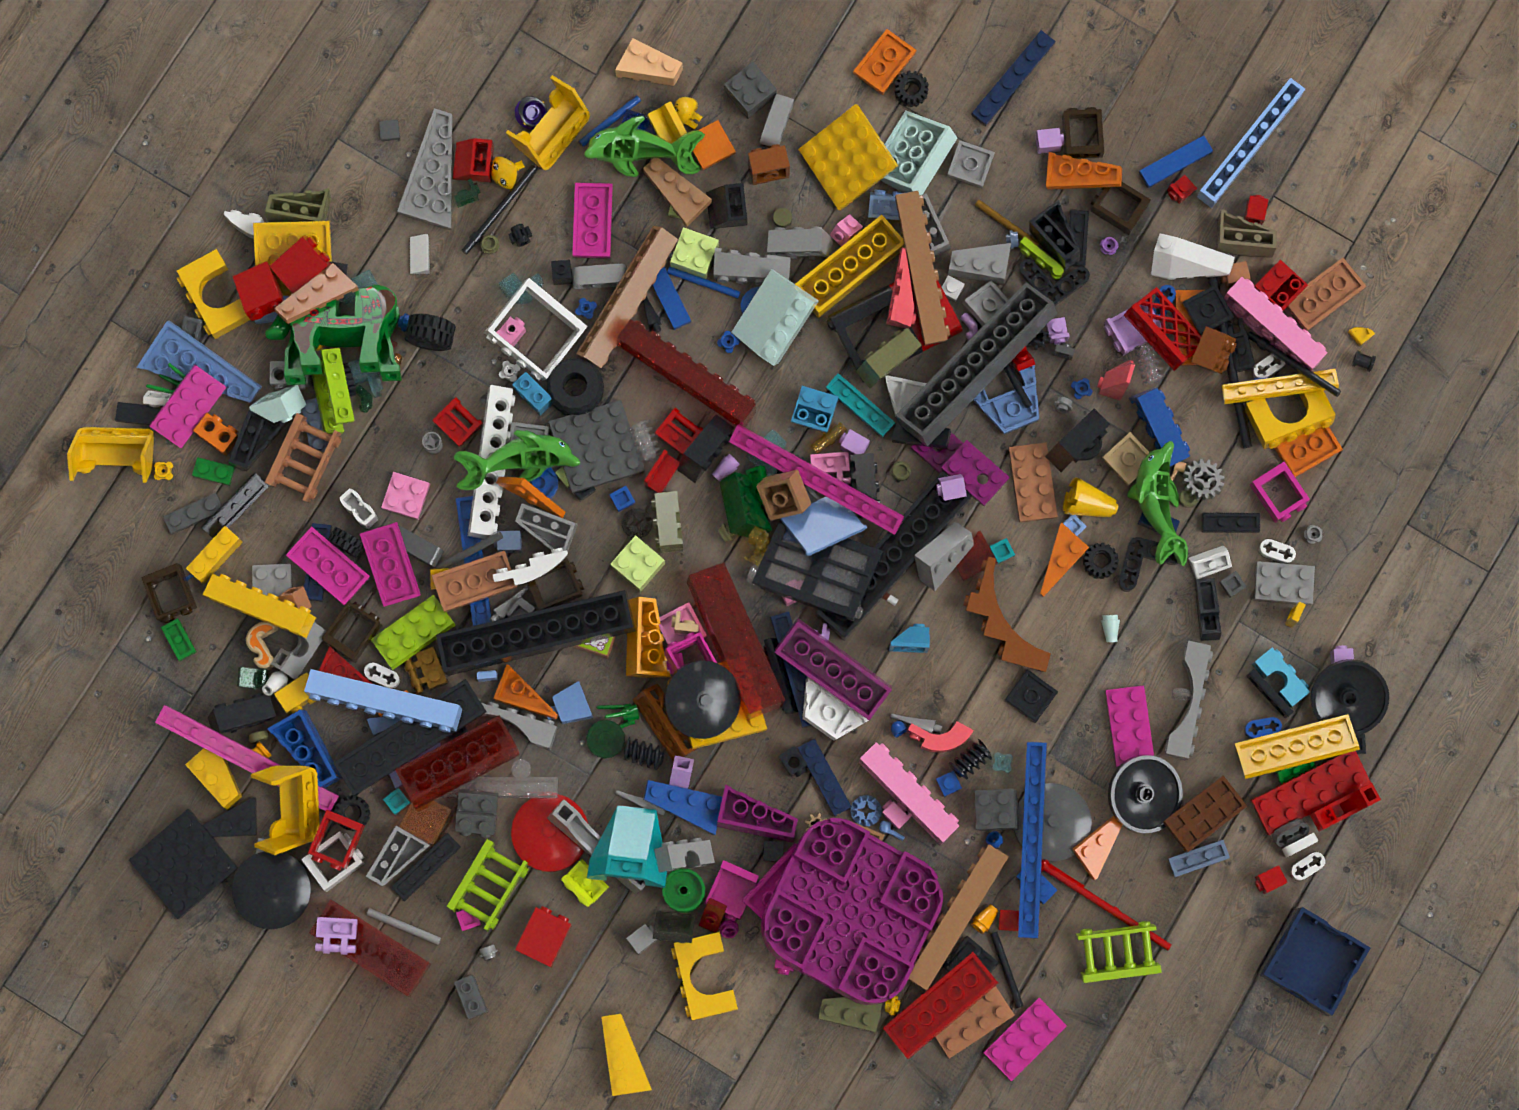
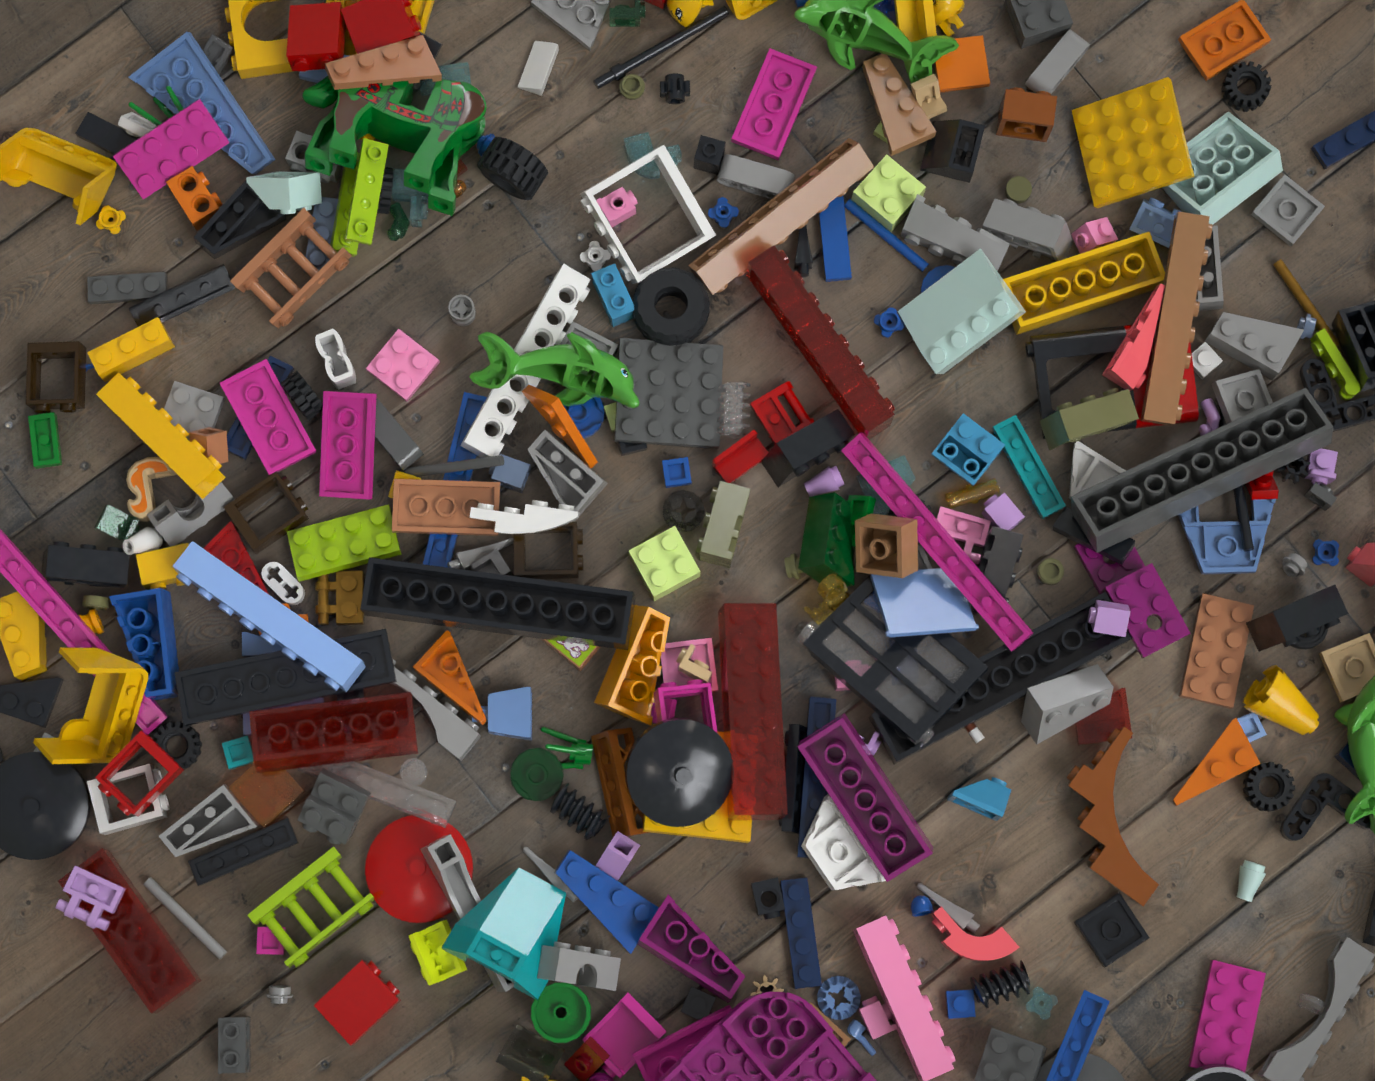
camera: 20 degrees right, 0 degrees up
(213, 471) = (173, 244): green plate -> none
(453, 426) = (496, 298): red plate -> none
(487, 676) = (416, 634): light blue tile -> none
(642, 938) = (483, 1053): light grey brick -> none
(695, 174) = (928, 96): none -> tan bracket
(1002, 550) = (1144, 725): teal plate -> none

